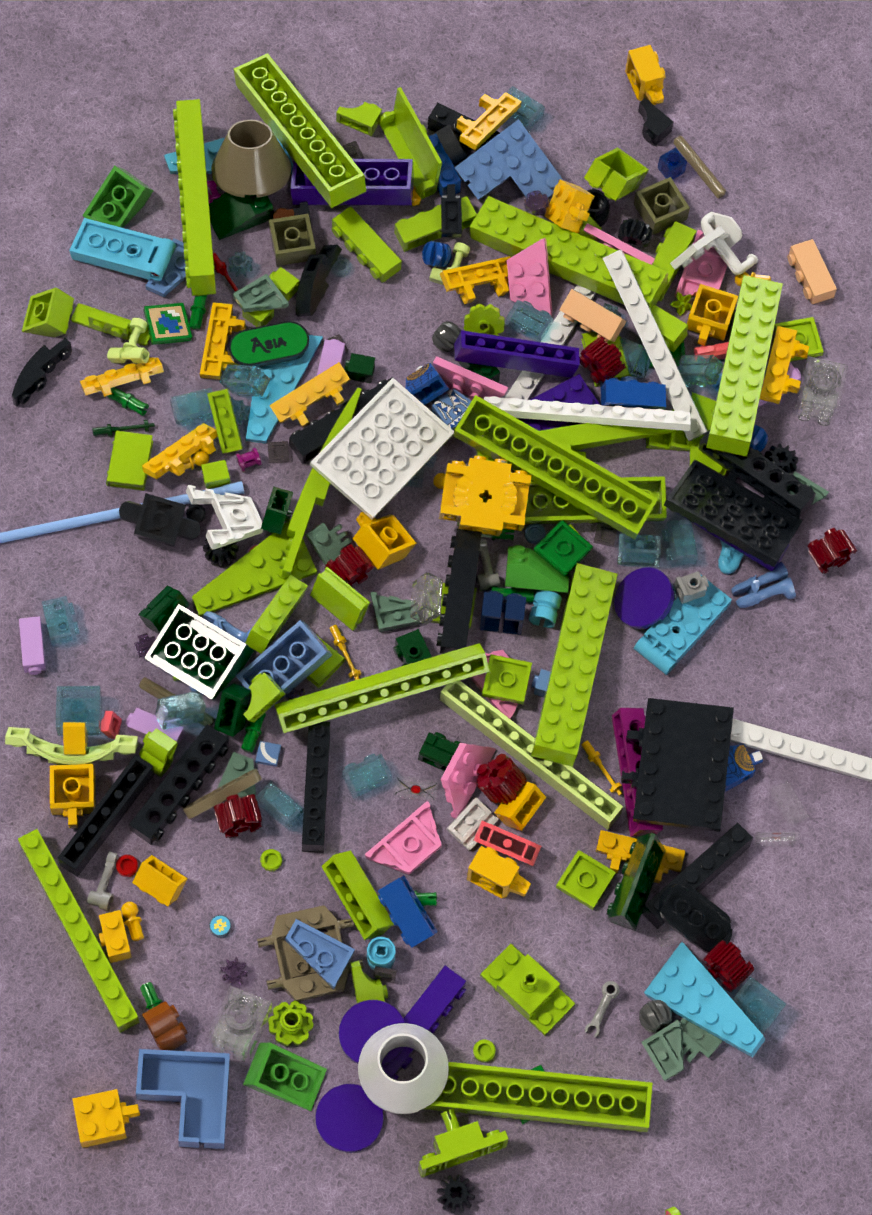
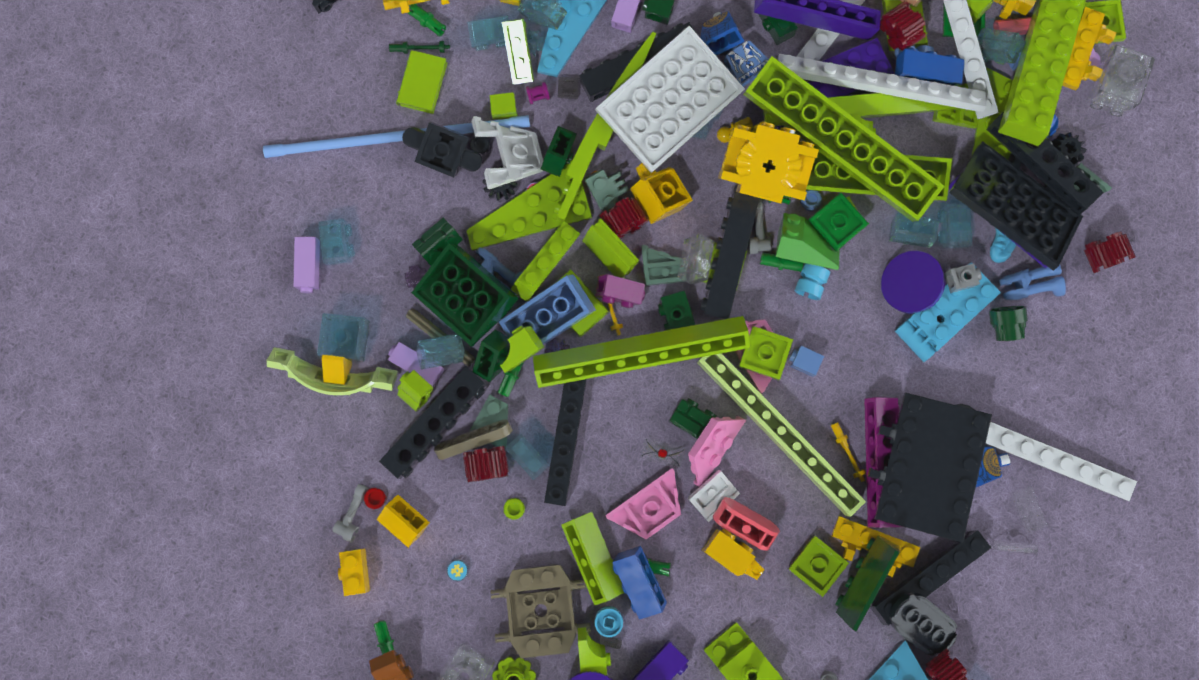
camera: 15 degrees right, 15 degrees up
(72, 791) = (328, 420): yellow hinge -> none
(78, 931) = (319, 561): lime brick -> none
(106, 815) = (358, 449): black brick -> none
(110, 724) = (373, 354): coral plate -> none
(129, 911) = (372, 546): yellow axle -> none
(173, 456) = (460, 85): yellow hinge -> none
(199, 458) = (490, 86): yellow axle -> none
(238, 975) = (470, 617): clear purple gear -> none
(268, 753) = (523, 399): medium blue tile -> none
(296, 402) = (620, 23): yellow hinge -> none
(320, 951) = (550, 615): medium blue wing -> none
(354, 636) = (620, 290): none -> magenta brick
(366, 775) = (616, 434): clear light blue brick -> none
(467, 381) = (765, 36): bright pink wing -> none
(500, 779) = (747, 458): dark red brick -> none
(513, 607) = (781, 282): dark blue piece -> none
(523, 808) = (763, 483): yellow brick -> none
(574, 665) = (835, 347): lime brick -> none
(605, 534) = (880, 209): clear smoke tile -> none
(636, 358) = (936, 25): clear light blue slope -> none
(743, 626) = (1009, 322): none -> dark green piece

